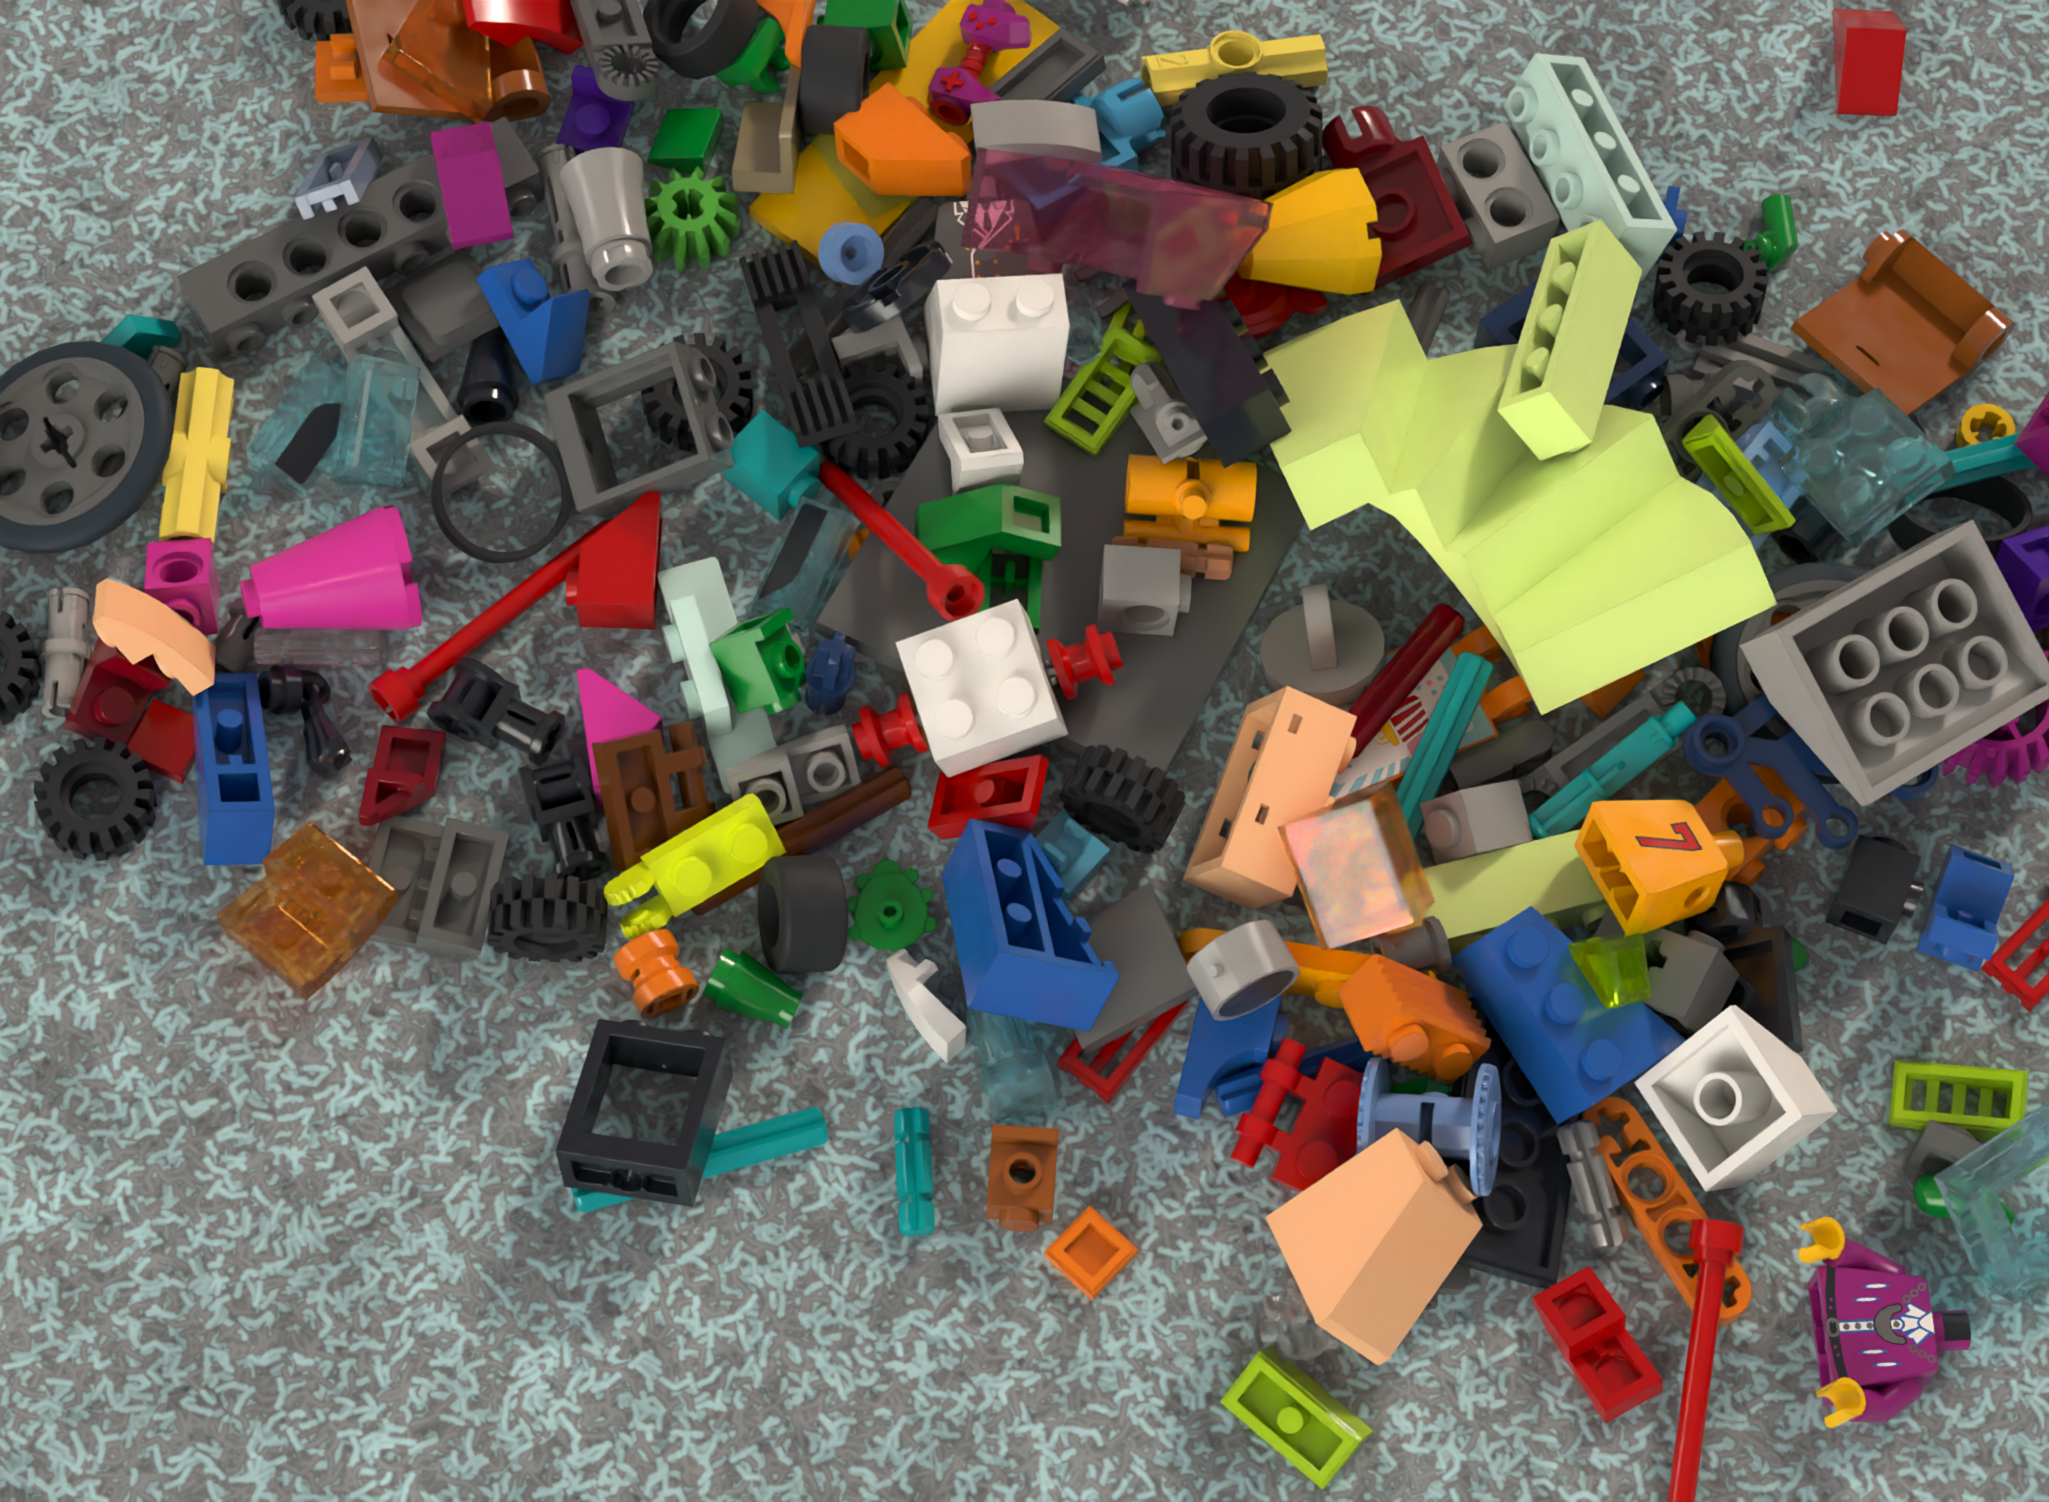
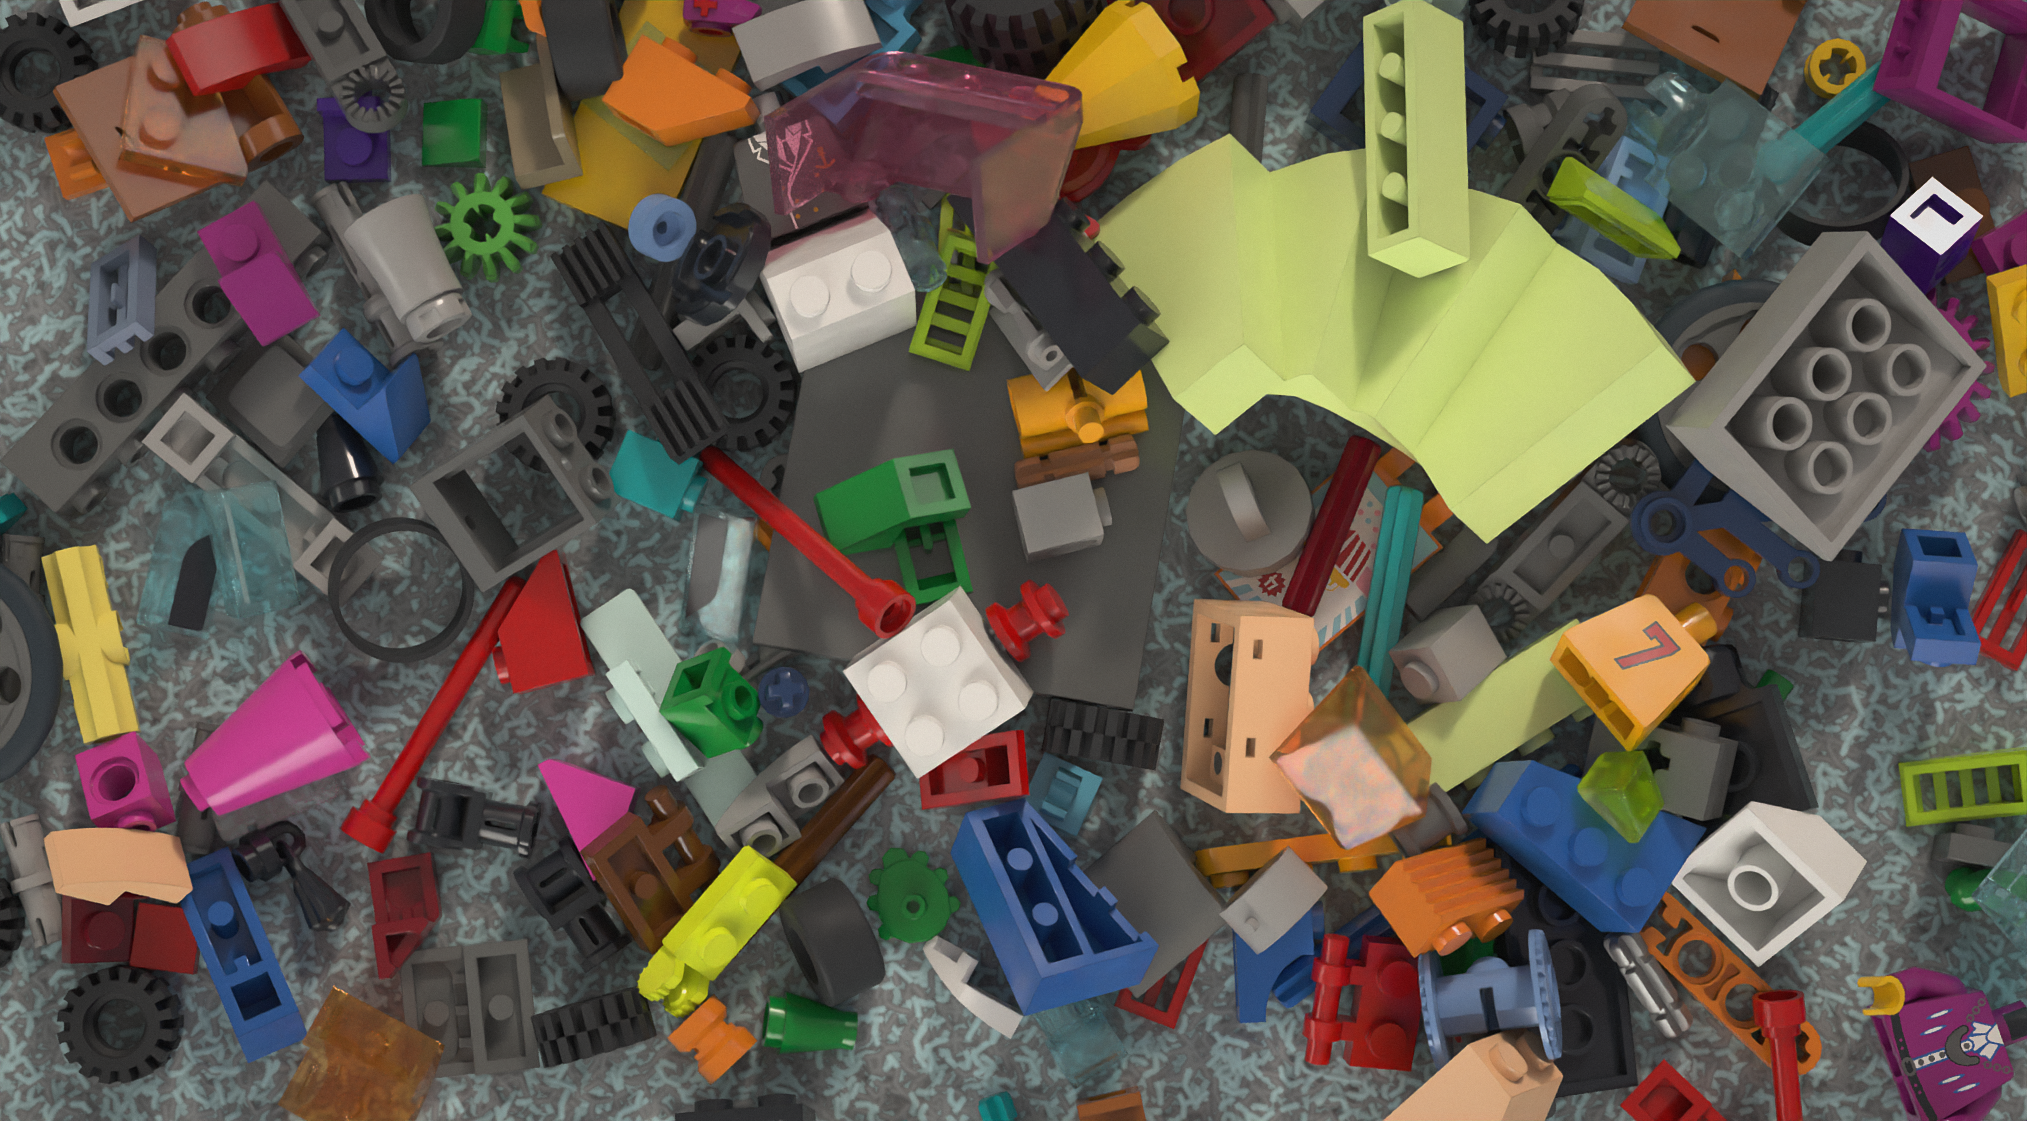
camera: 15 degrees left, 20 degrees up
(980, 449) = (856, 410): white slope -> none
(1610, 772) = (1565, 572): teal piece -> none

